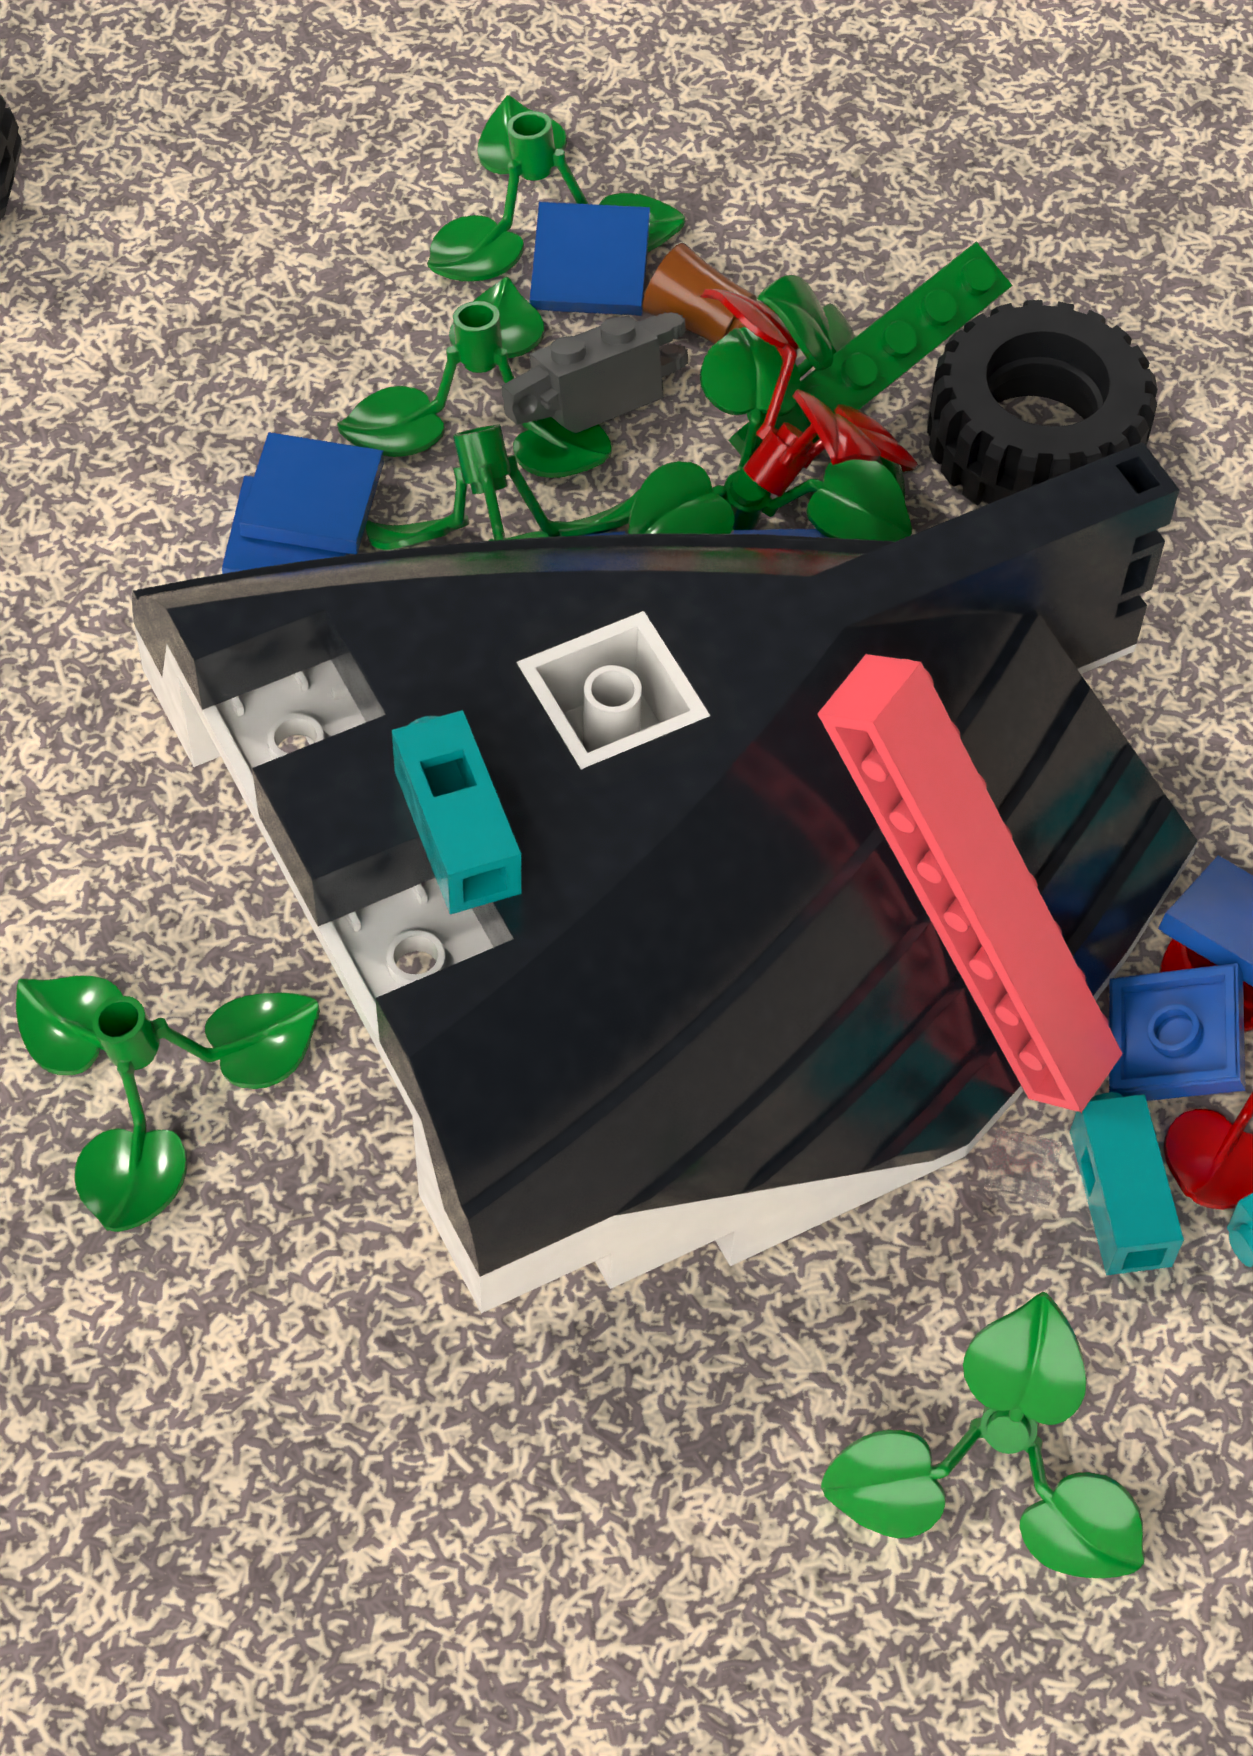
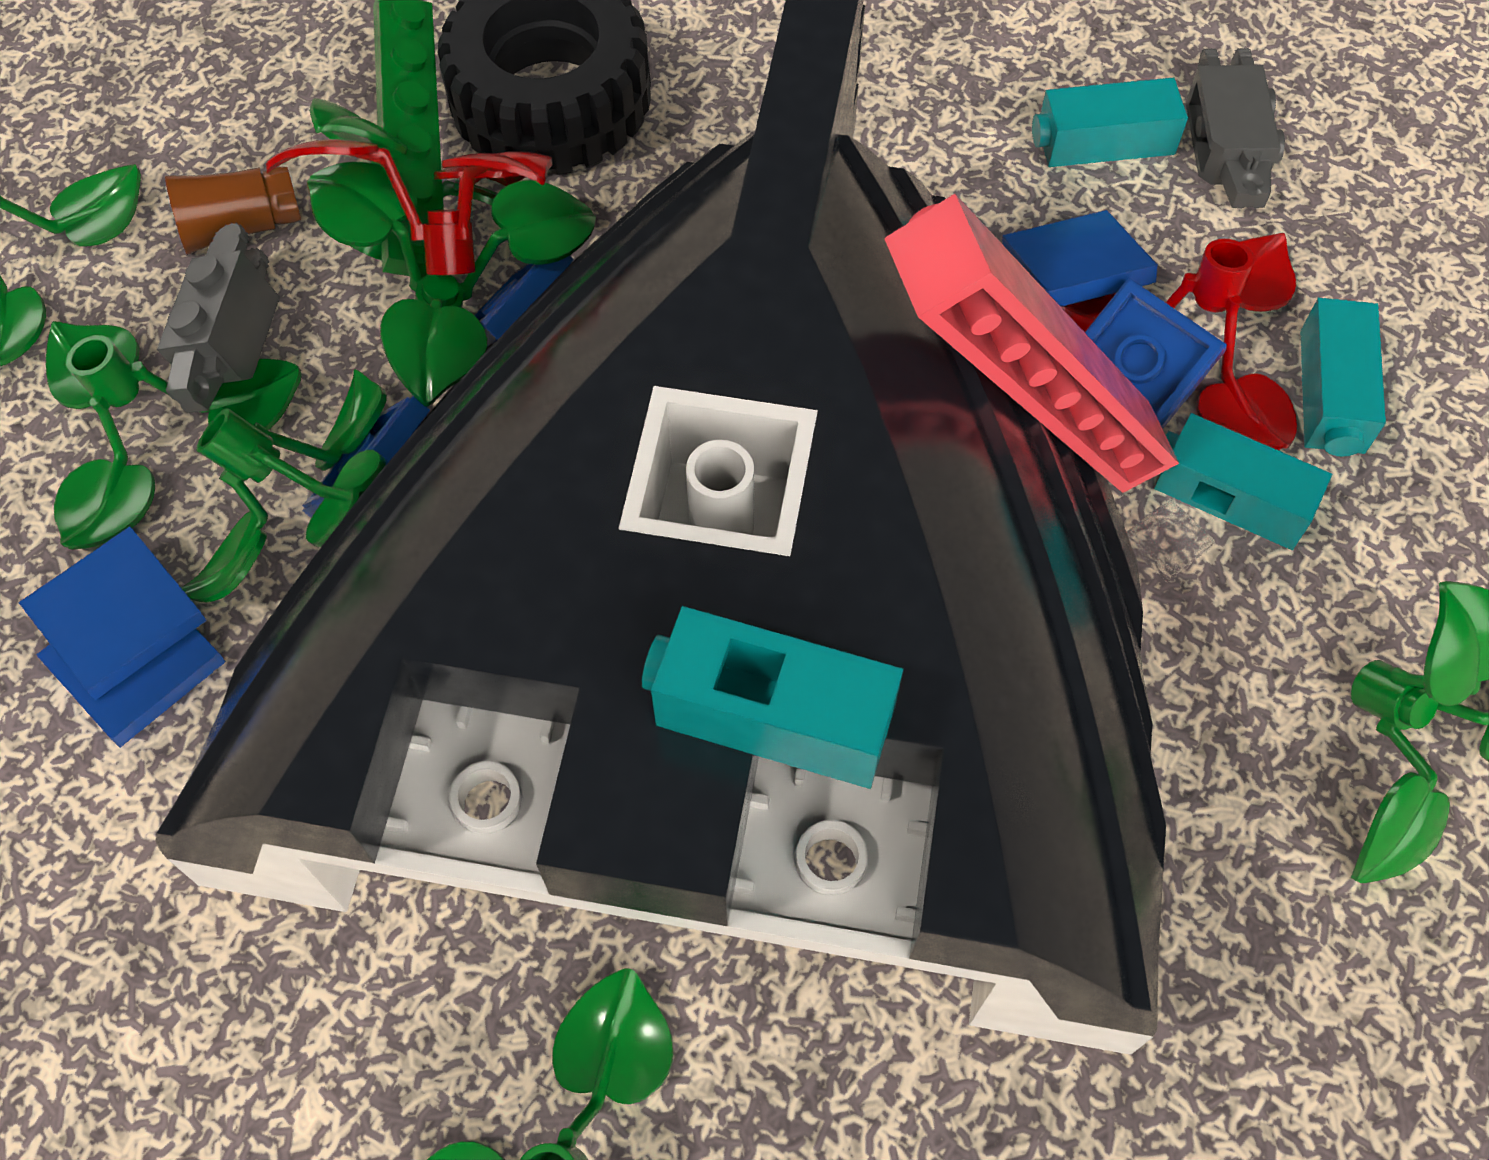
camera: 50 degrees left, 5 degrees up
(590, 258) = (99, 253): blue tile -> none

